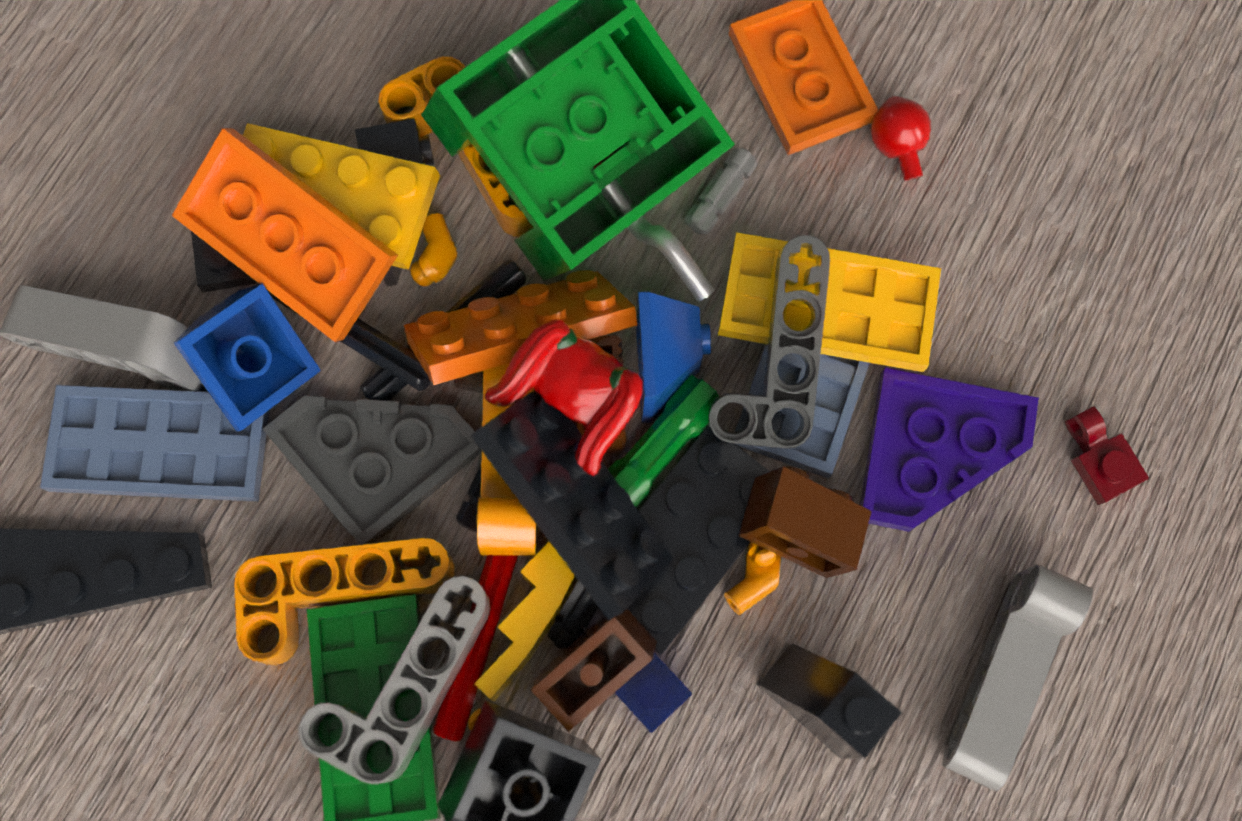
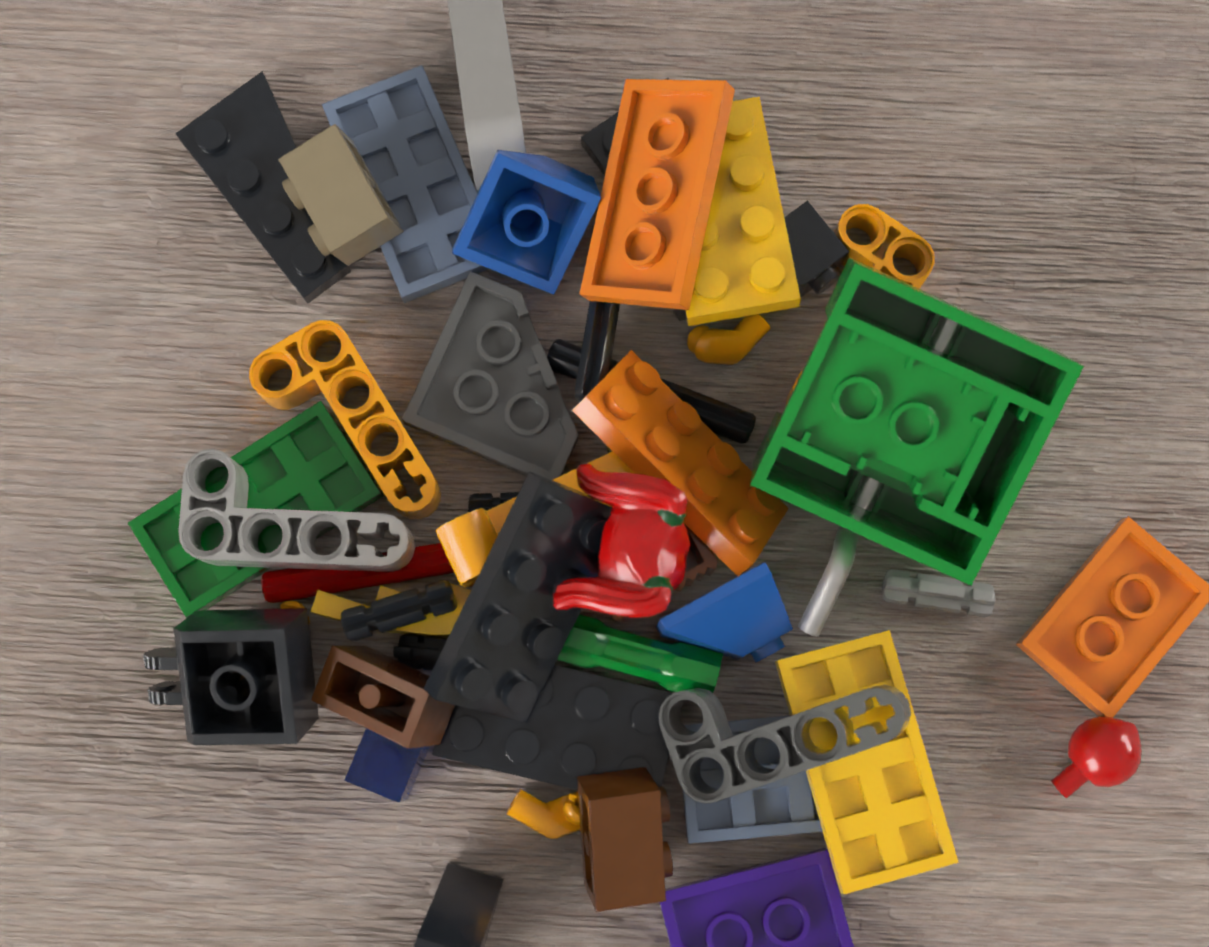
camera: 65 degrees right, 5 degrees up
(131, 504) = (339, 195): none -> dark tan brick
(528, 618) = (398, 610): none -> black axle

